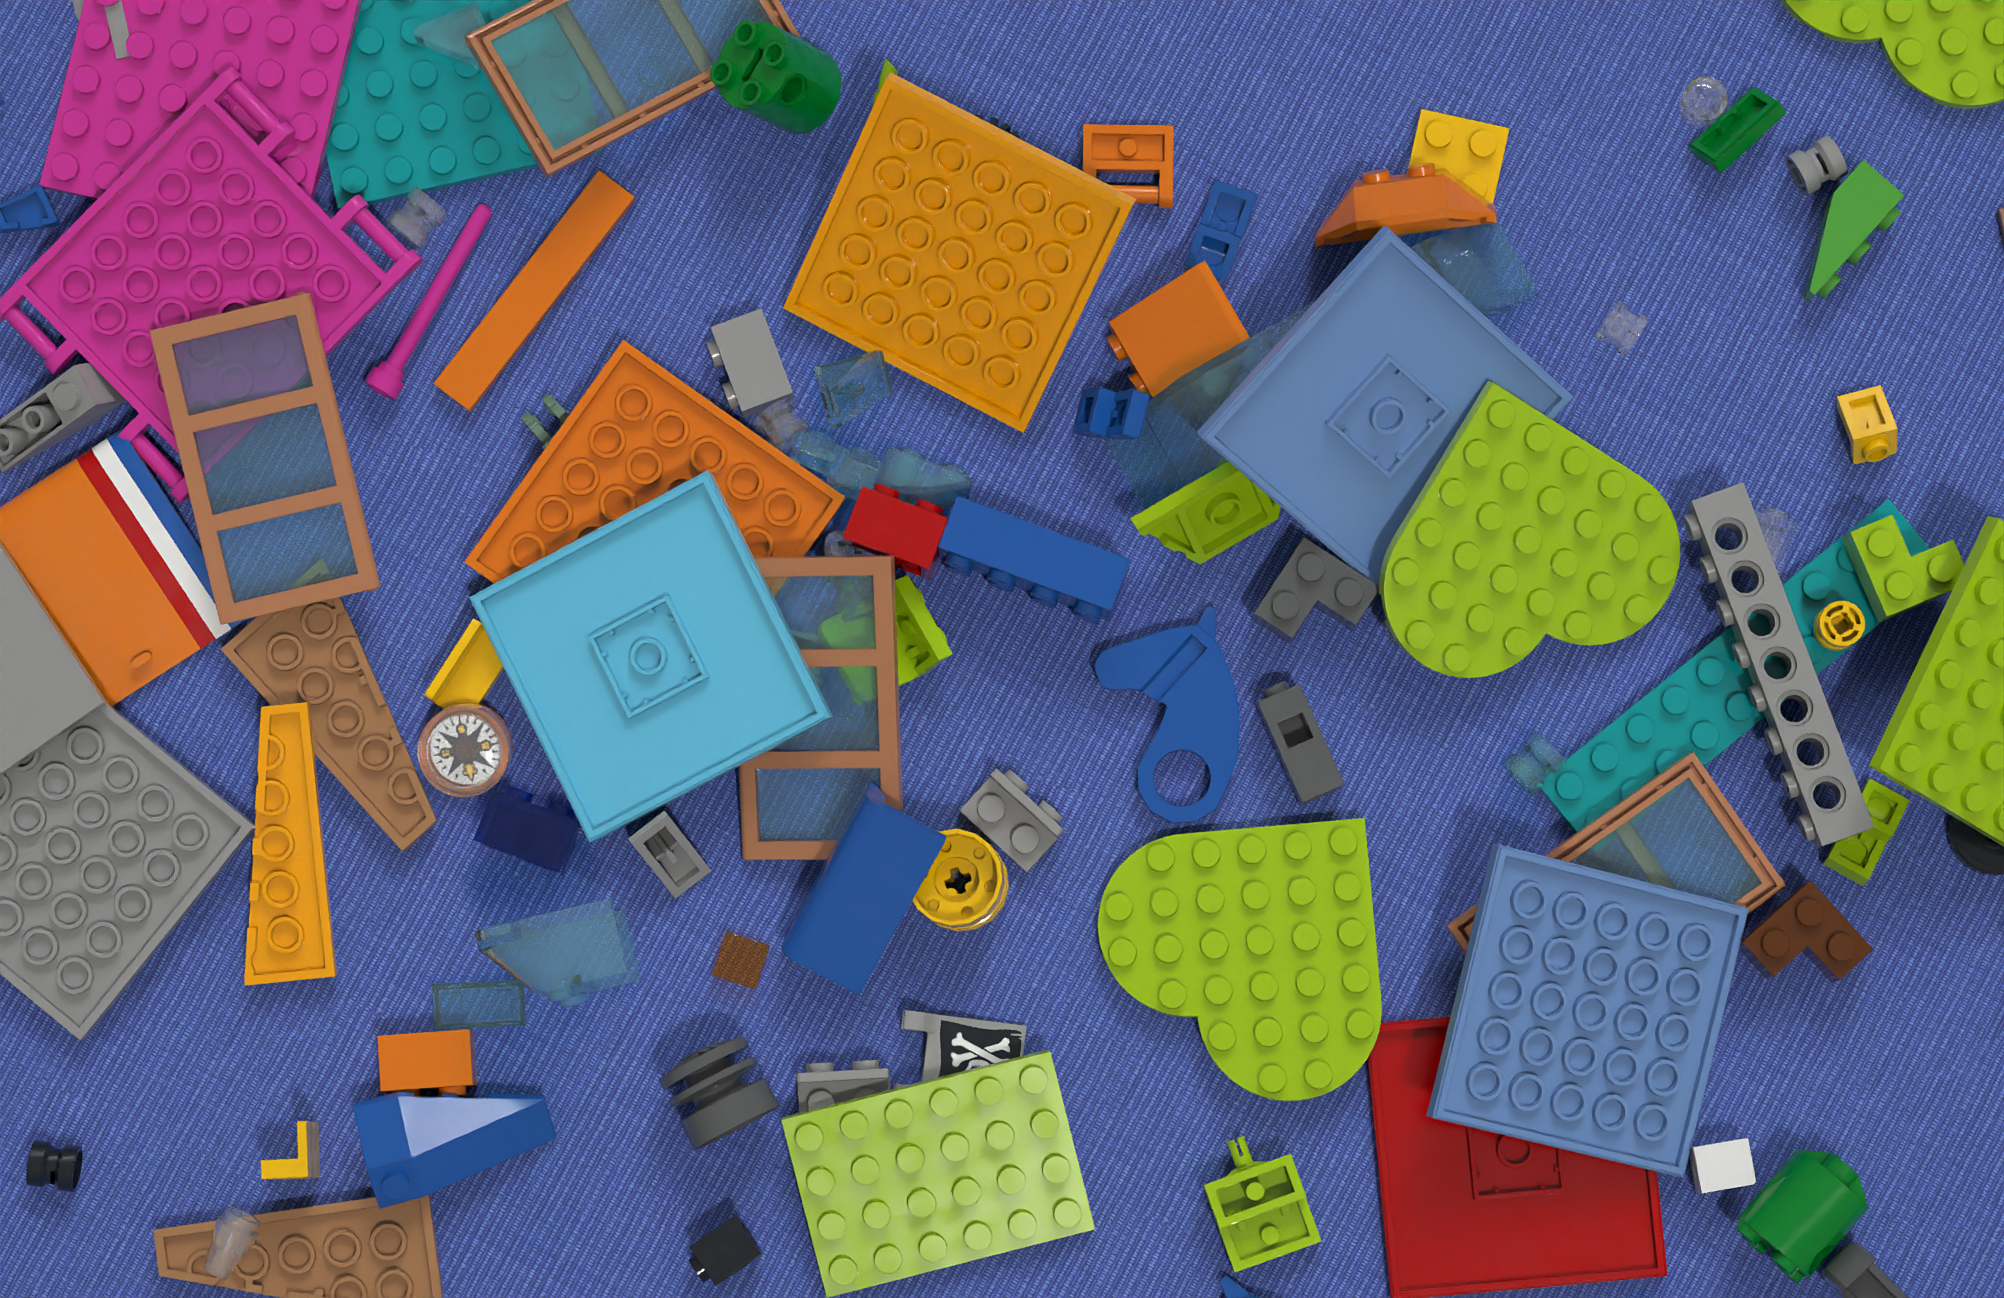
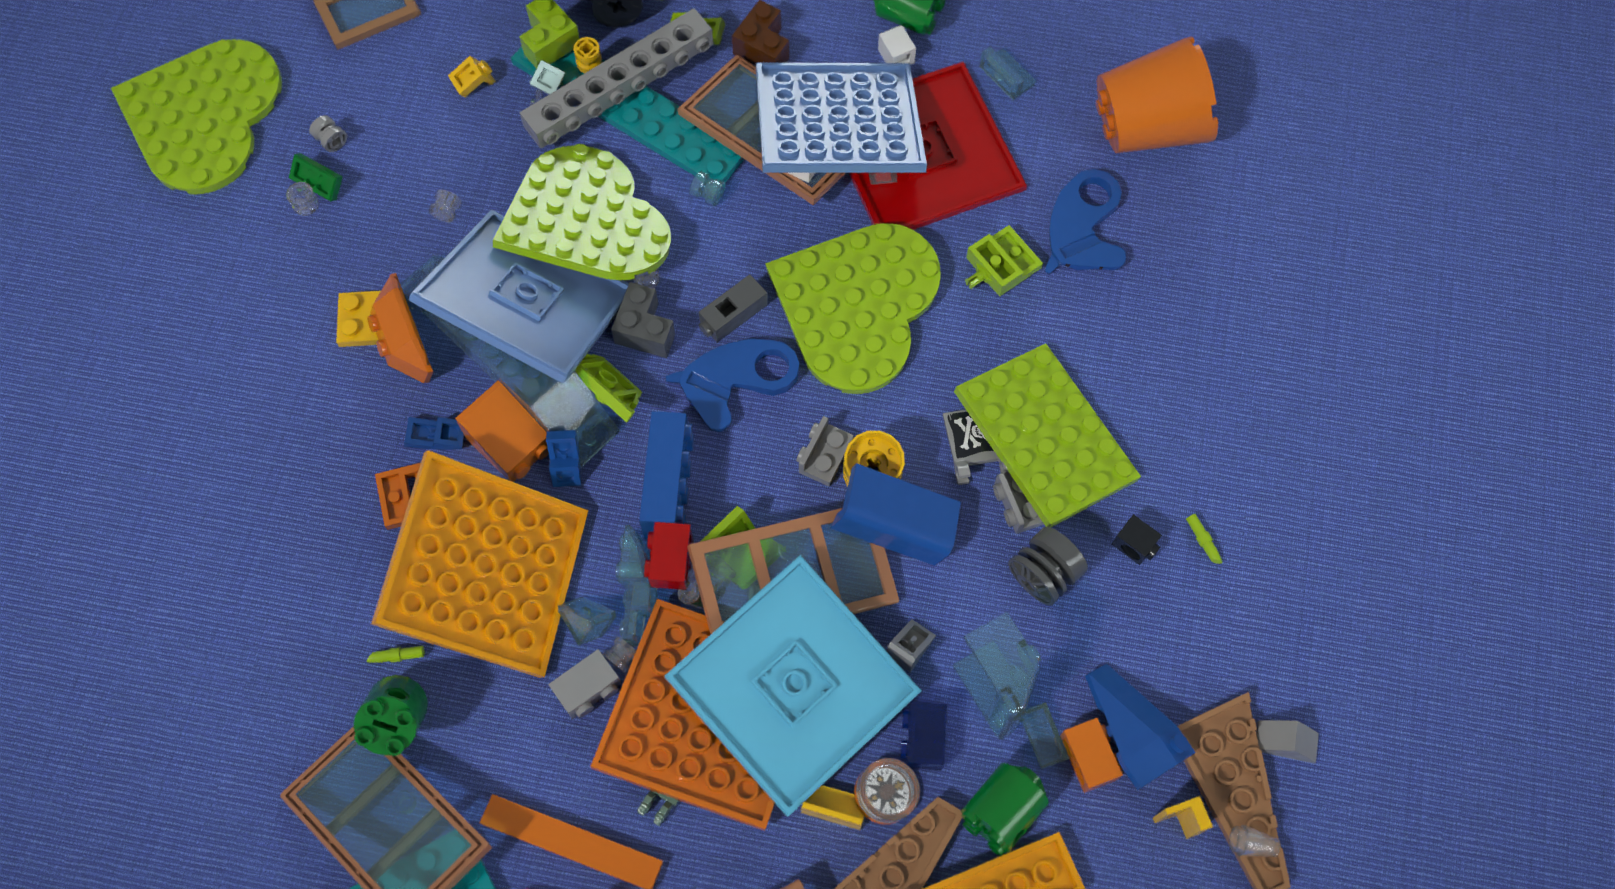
camera: 110 degrees left, 15 degrees down
(389, 908) = (1005, 807): none -> green cylinder
(741, 960) = (960, 585): clear orange tile -> none
(1814, 547) = (547, 78): none -> light aqua plate
(1849, 218) = (361, 112): bright green slope -> none

